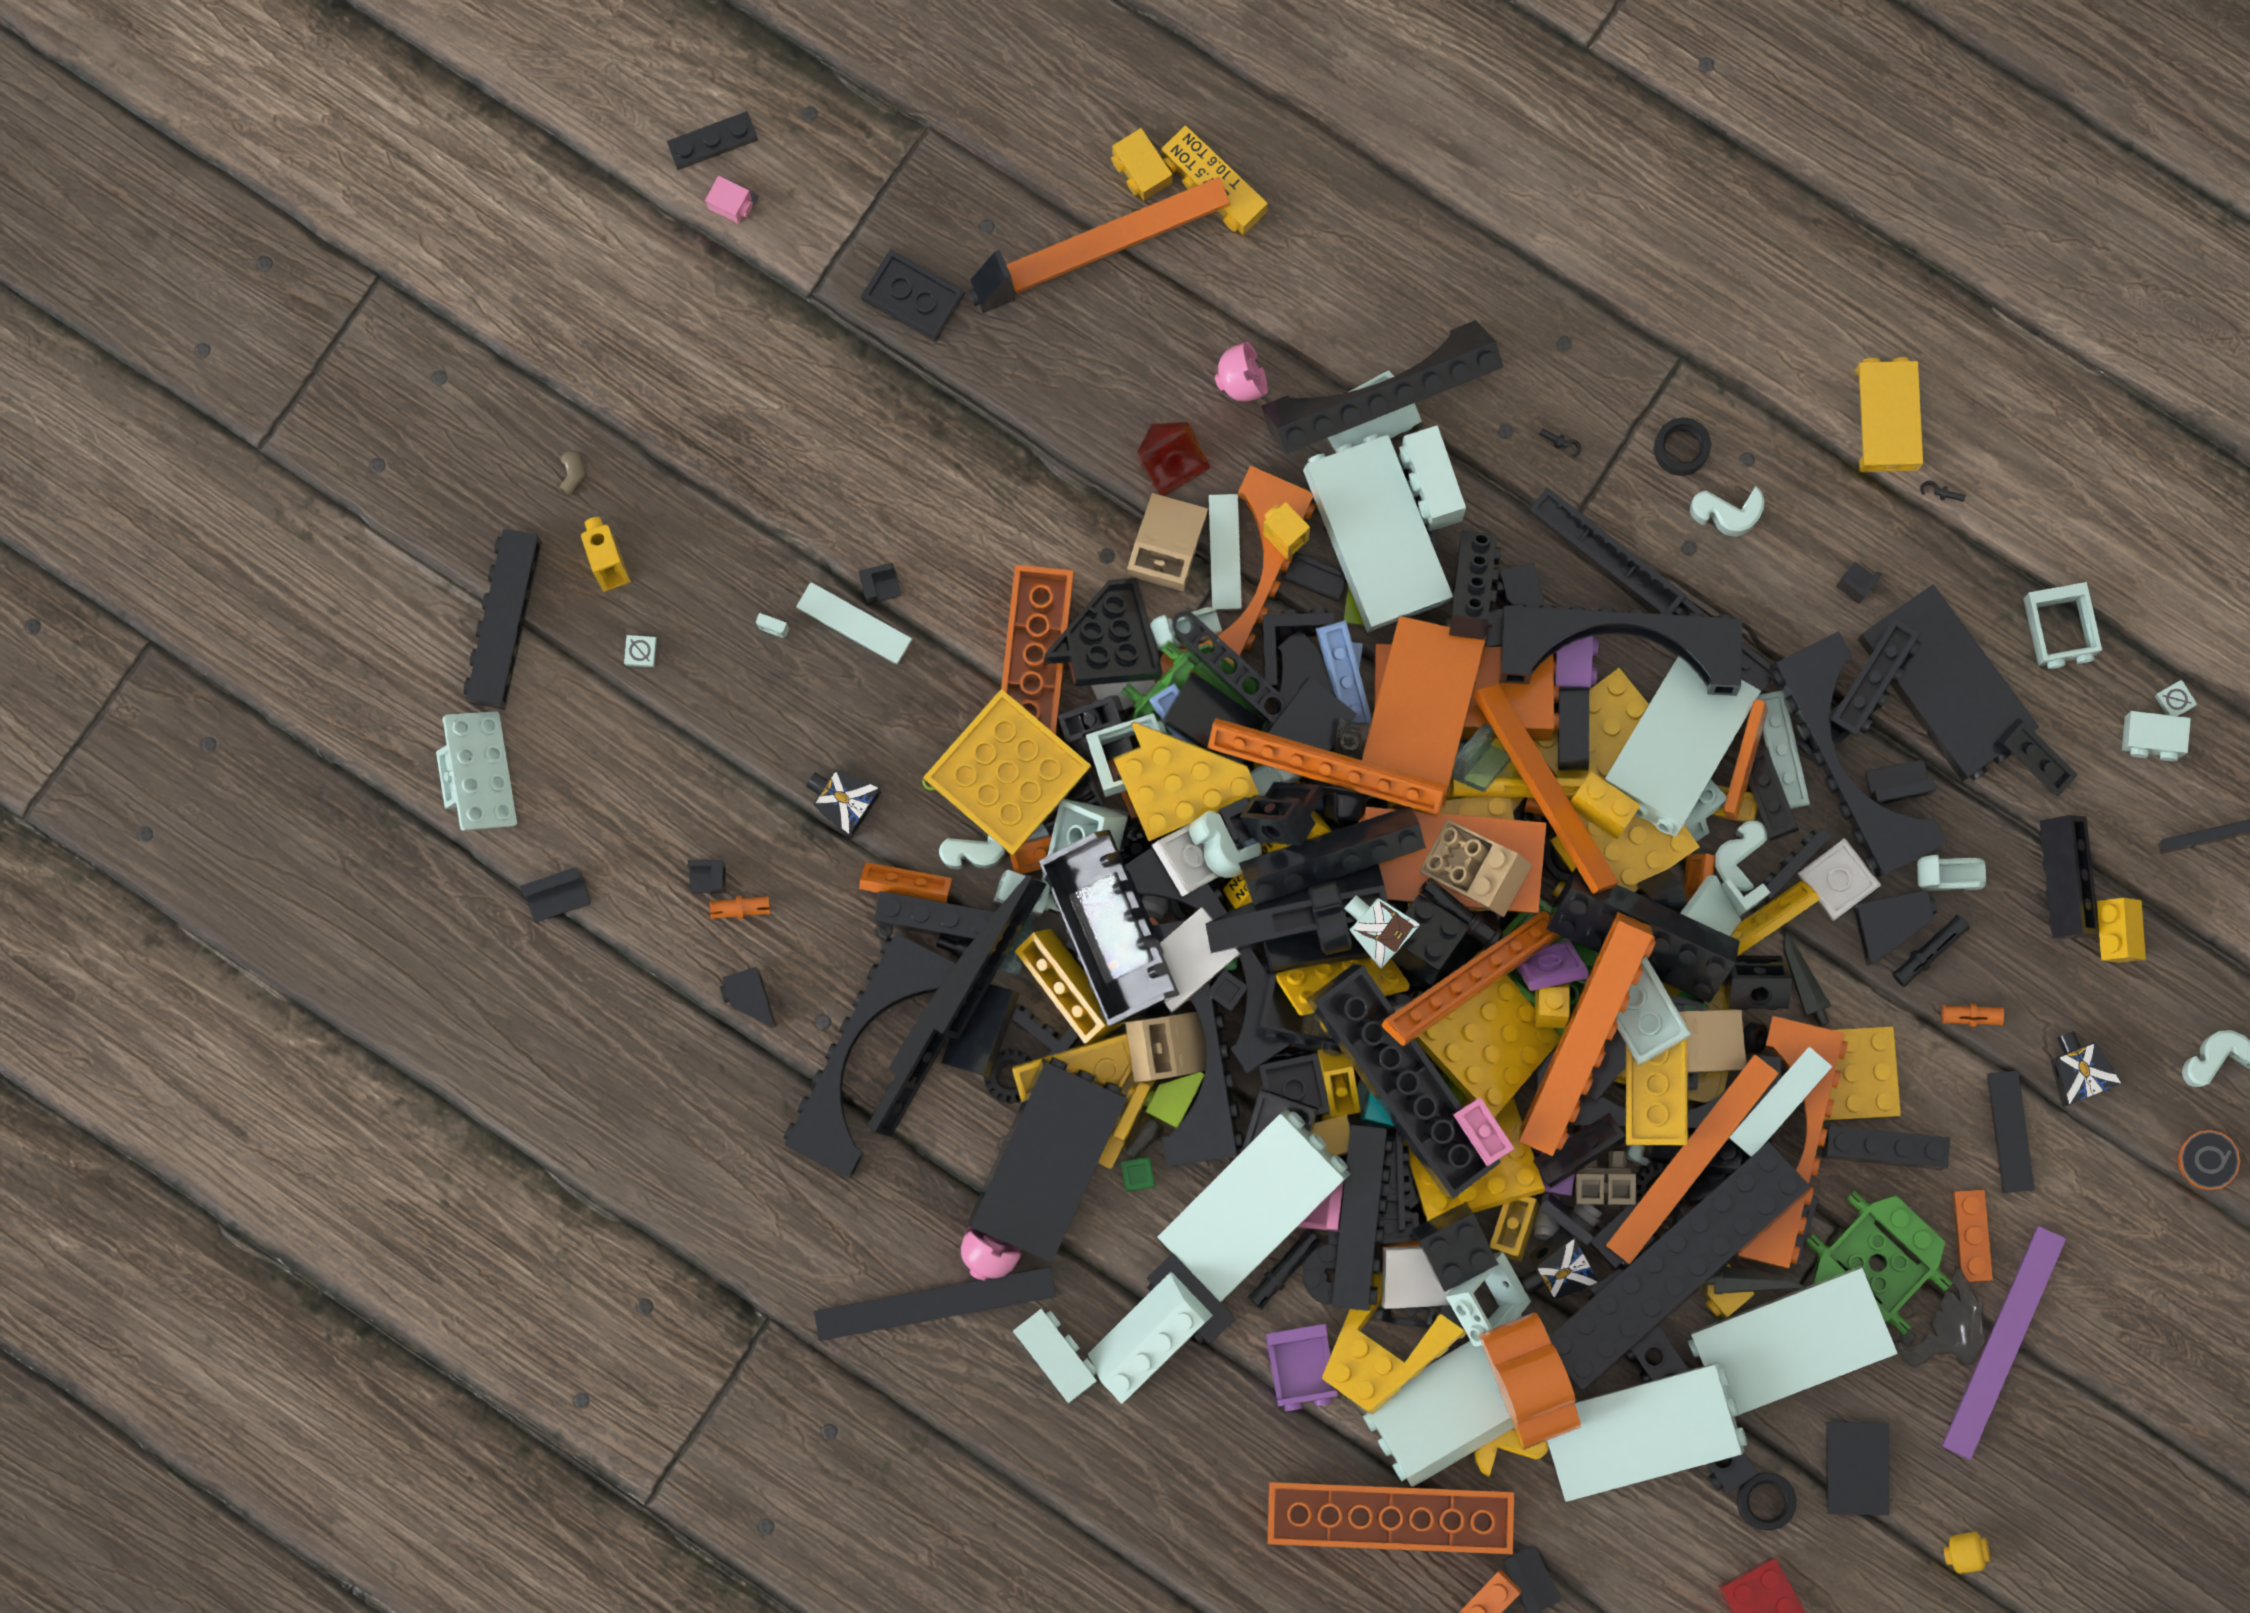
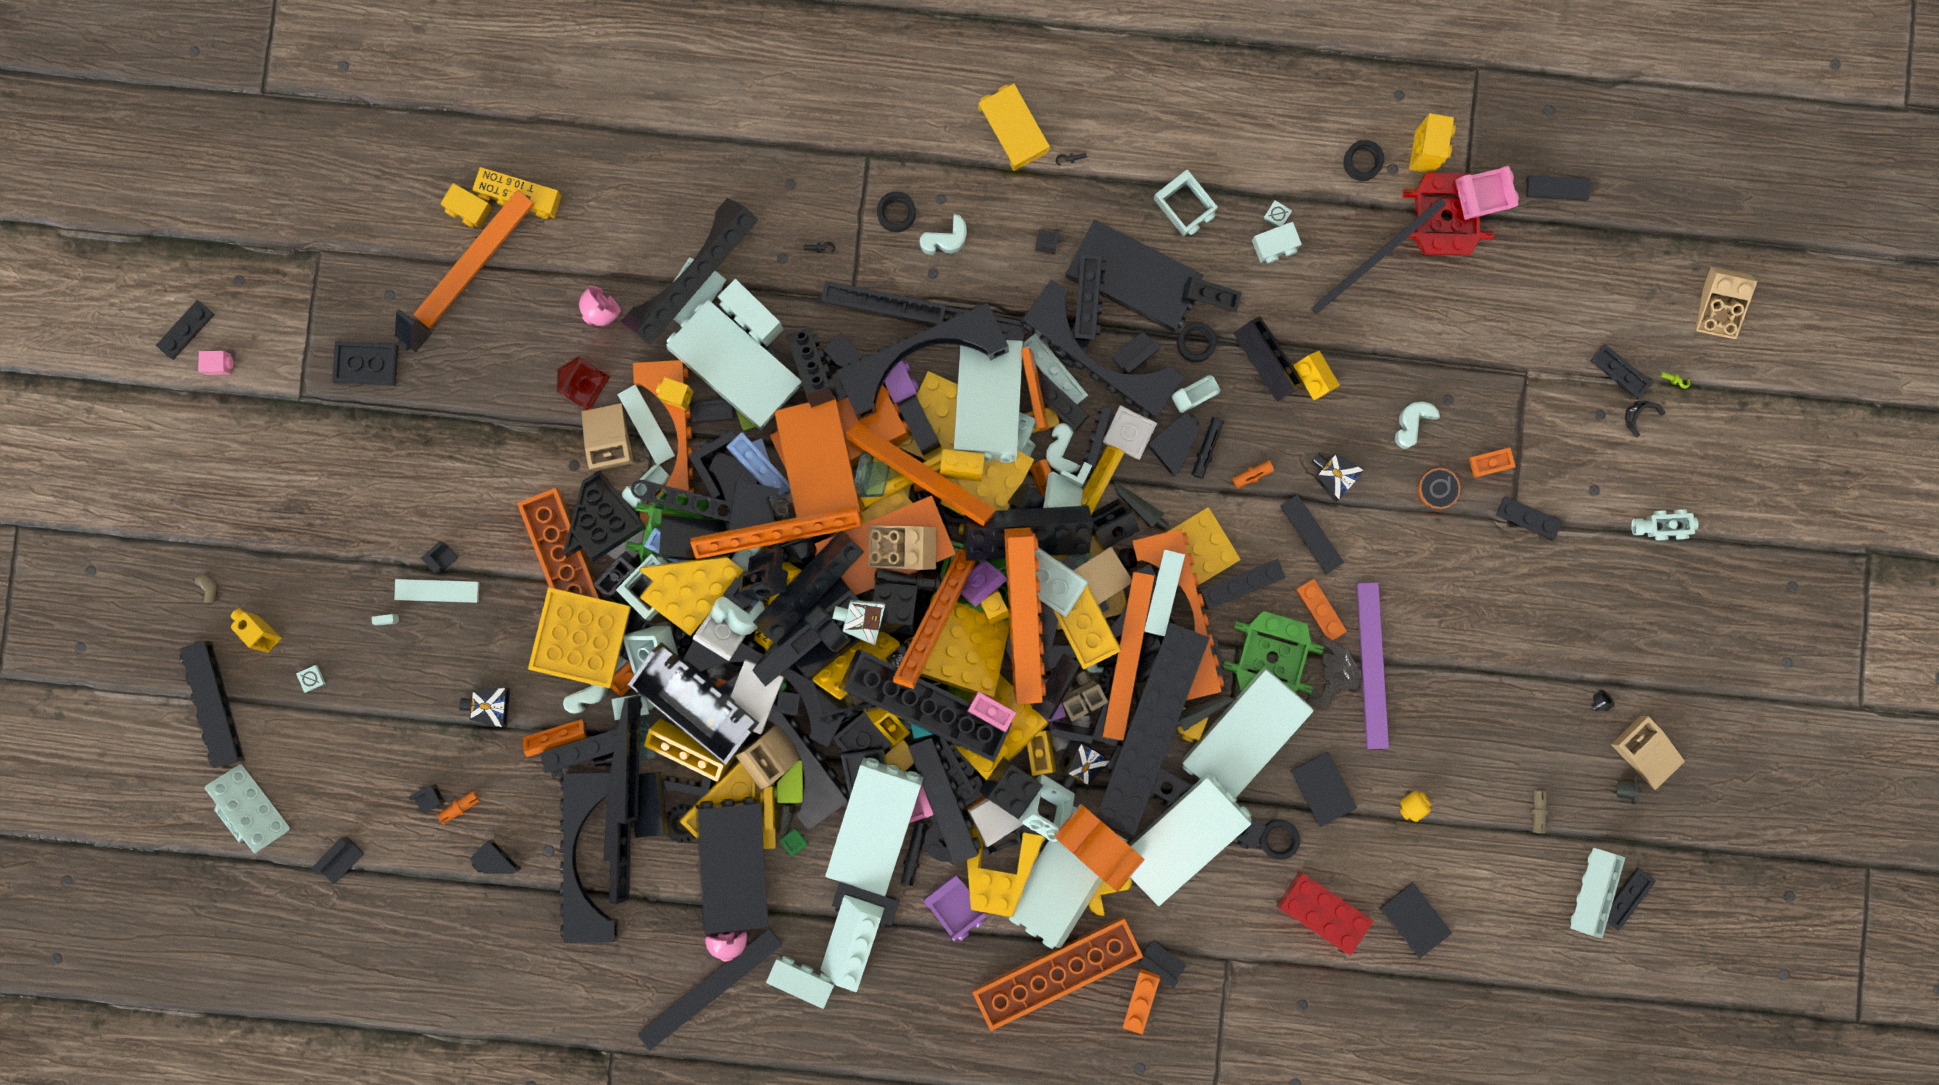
camera: 35 degrees left, 5 degrees up
(2002, 793) = (1196, 326): none -> black tyre

